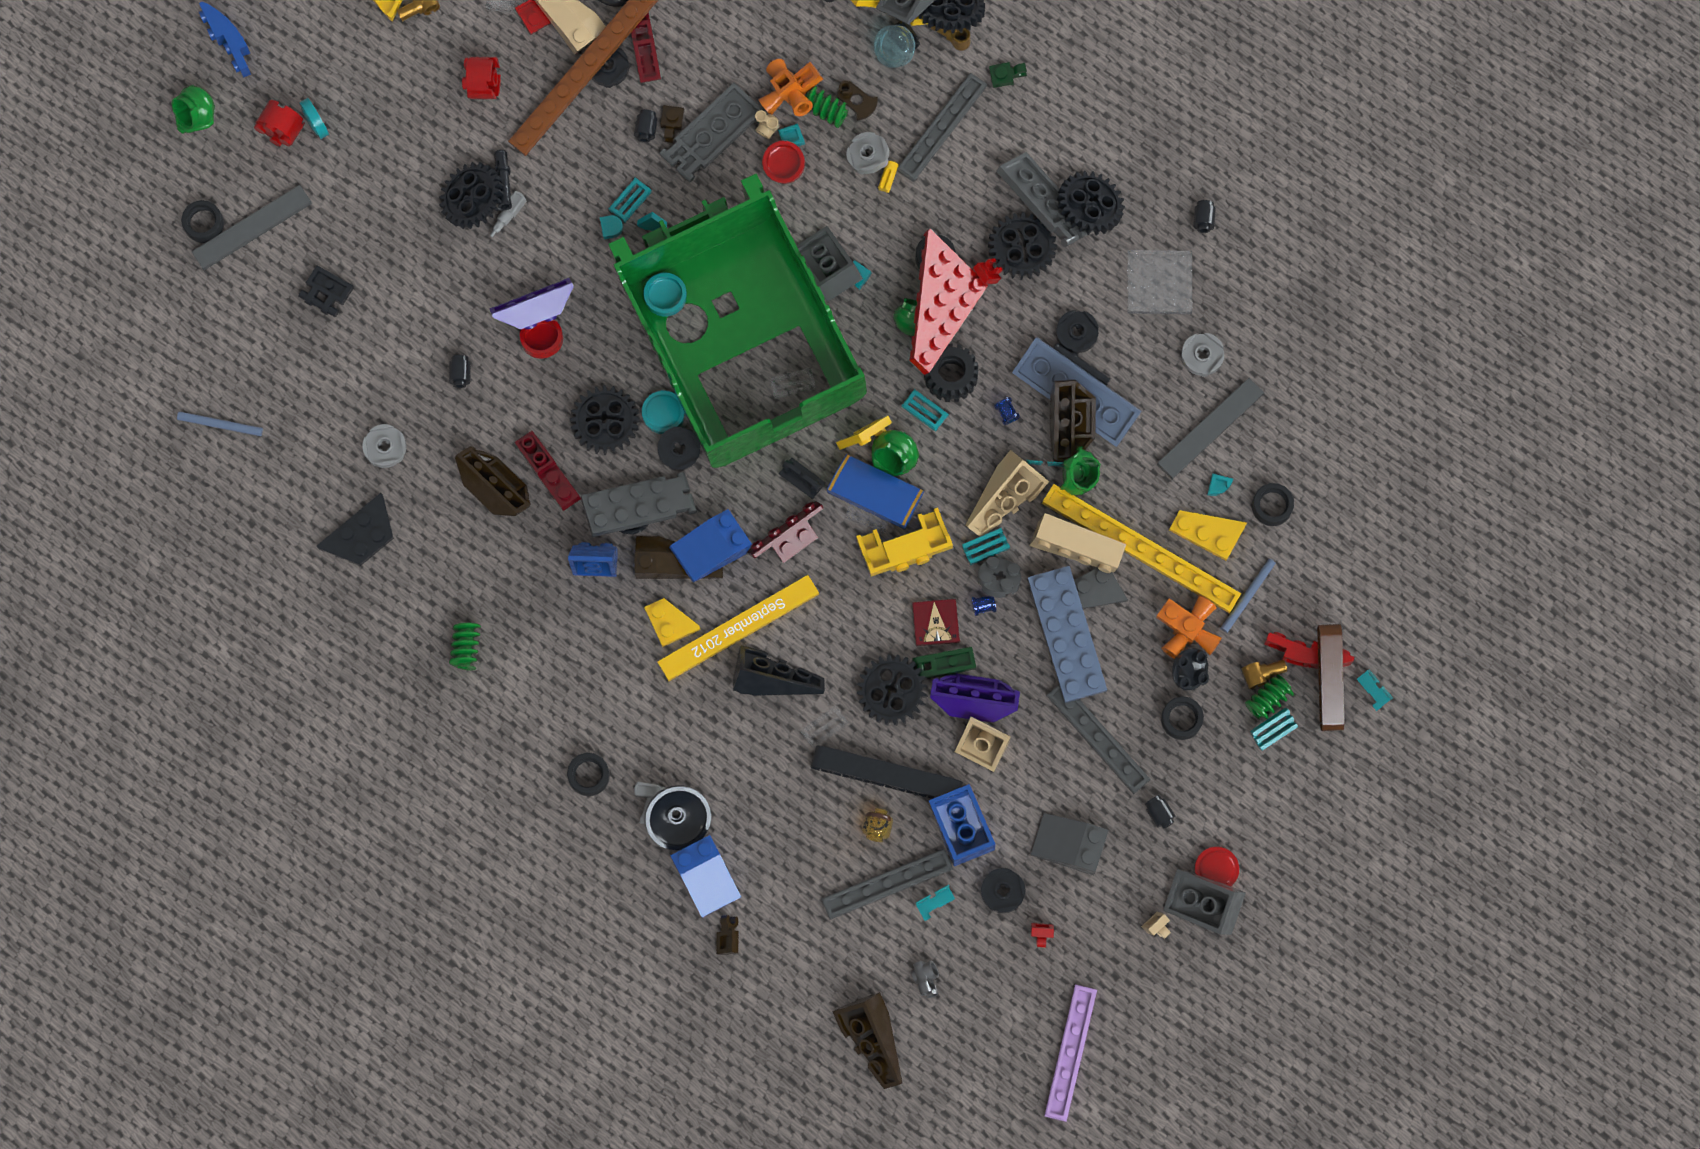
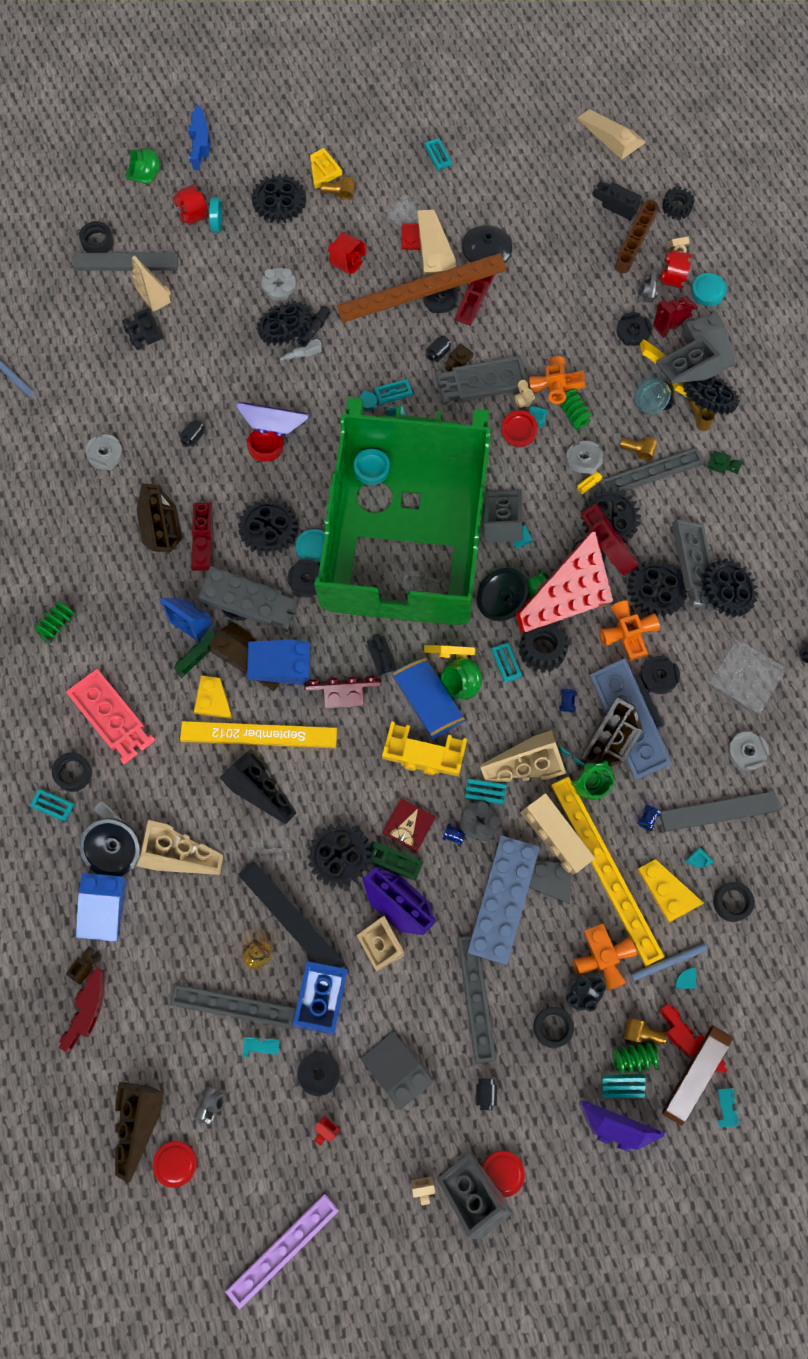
camera: 30 degrees right, 5 degrees down
(306, 244) = (149, 286): none -> tan wedge
(361, 534) = (44, 501): black wing -> none
(373, 71) = (278, 198): none -> black gear
(429, 165) = (278, 275): none -> light grey plate
(584, 699) = (109, 715): none -> coral hinge
(610, 813) = (67, 812): none -> teal tile
(625, 589) = (195, 655): none -> dark green plate
(736, 785) = (170, 851): none -> tan wedge
(757, 963) = (90, 1003): none -> dark red slope
(863, 110) = (601, 428): dark brown piece -> none
(869, 345) = (497, 589): none -> black dish
(915, 209) = (627, 517): none -> black gear
(919, 106) = (643, 448): none -> pearl gold pin
(929, 1045) = (174, 1164): none -> red piece
(946, 227) = (609, 540): none -> dark red slope
(987, 272) = (618, 590): red tile -> none
(1022, 306) = (629, 630): none -> orange brick
(1150, 475) = (649, 817): none -> clear blue bush
(1273, 601) = (686, 979): none -> teal tile
(1290, 767) = (617, 1128): none -> dark purple wedge

